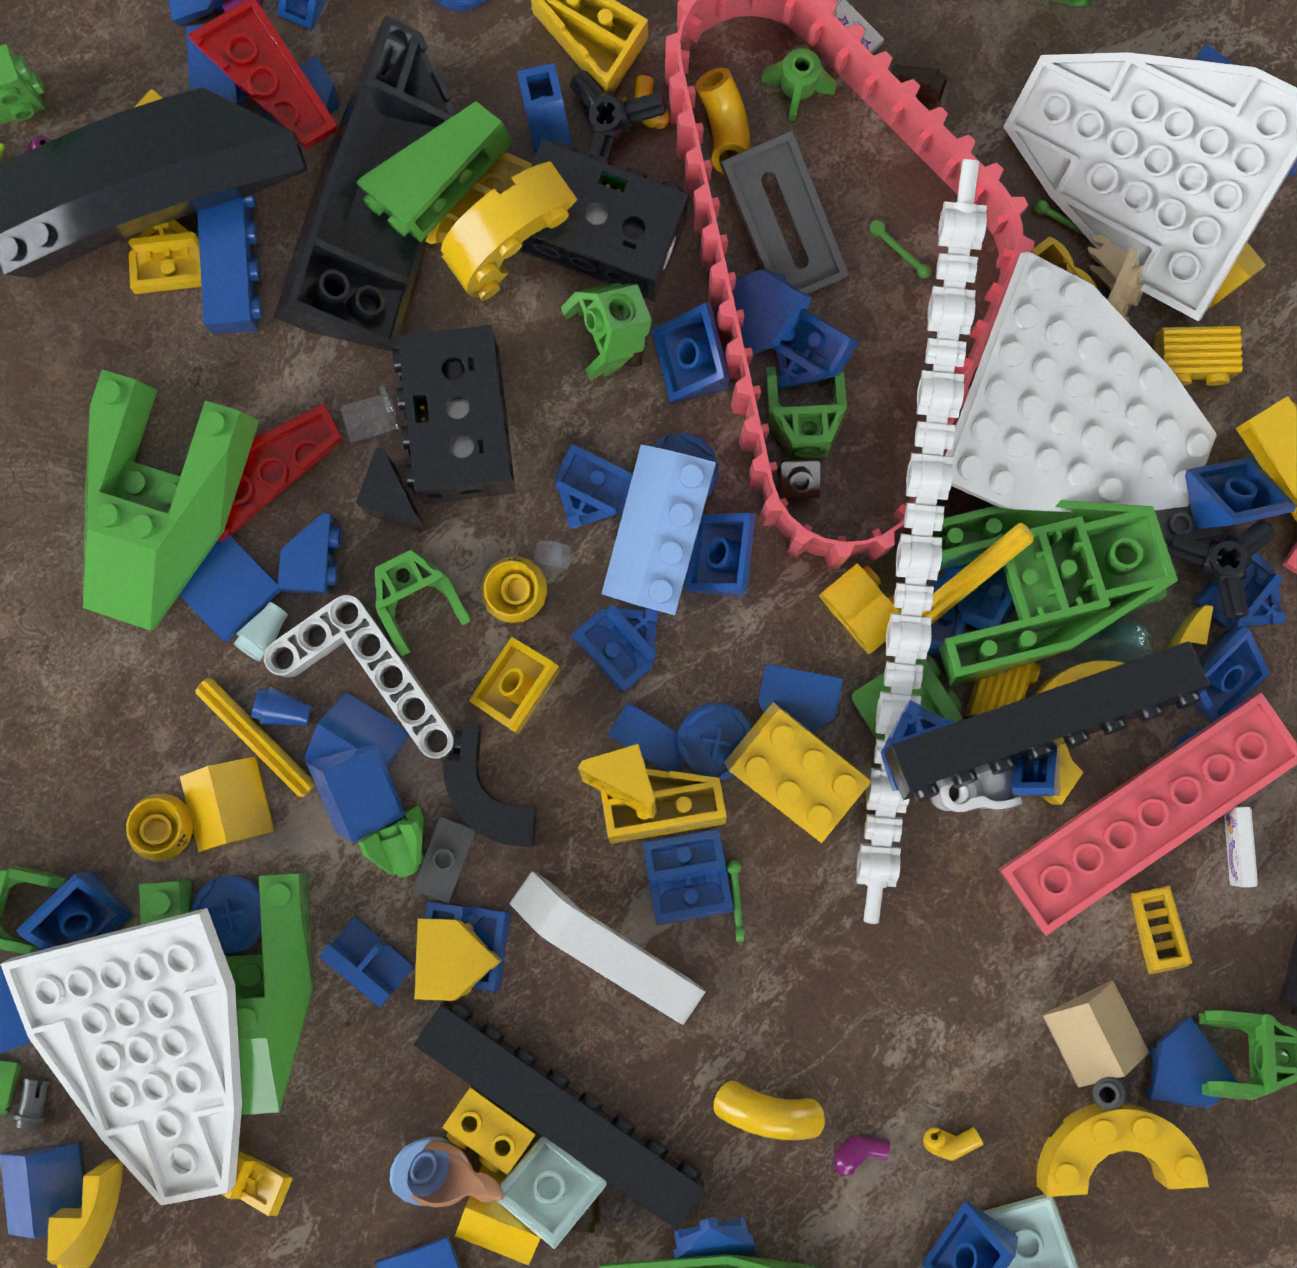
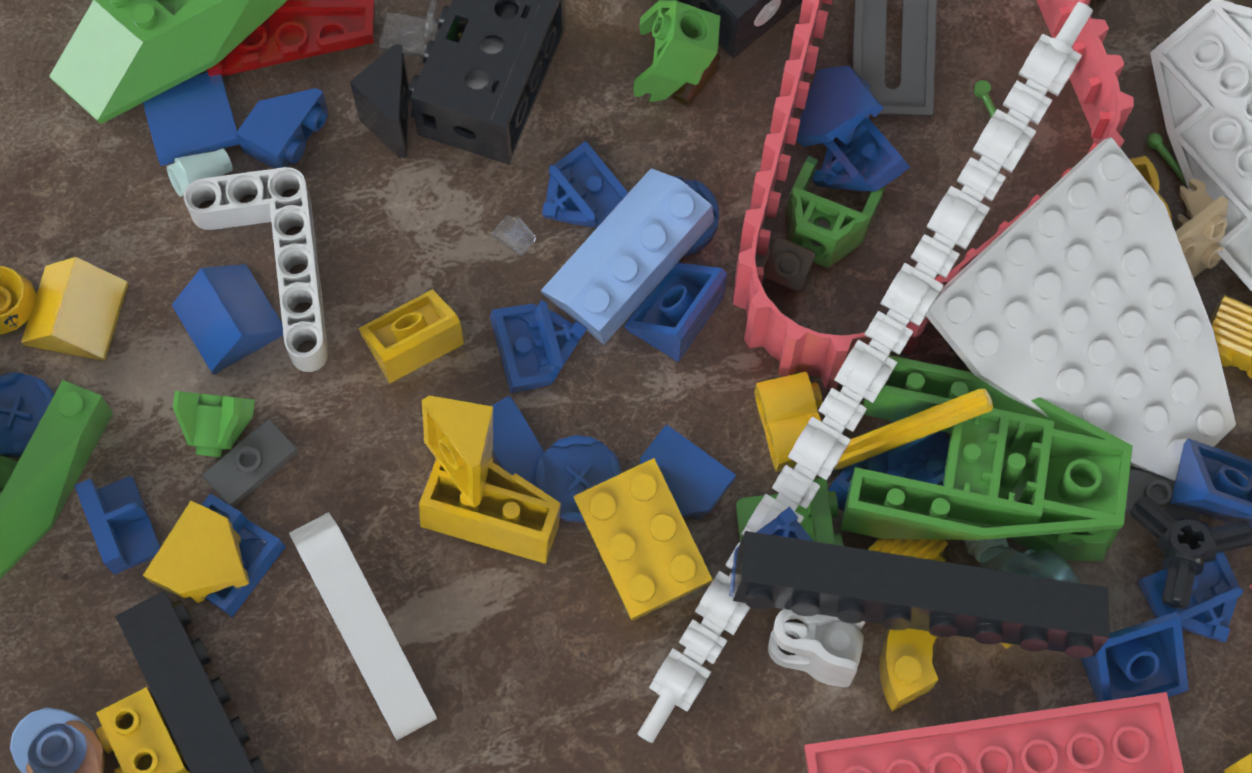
camera: 25 degrees right, 15 degrees down
(255, 737) = (137, 264): yellow axle -> none
(279, 708) = (173, 245): blue cone -> none
(356, 791) = (203, 349): blue slope -> none
(391, 589) = (342, 189): bright green piece -> none
(475, 805) = (323, 449): black arch -> none
(513, 589) = (470, 251): yellow hat -> none
(687, 877) = (479, 598): blue slope -> none
(691, 355) = (742, 115): blue slope -> none
(733, 867) = (531, 613): bright green hinge -> none
(1037, 777) = (885, 652): blue slope -> none
(1194, 628) = (1126, 600): yellow slope -> none

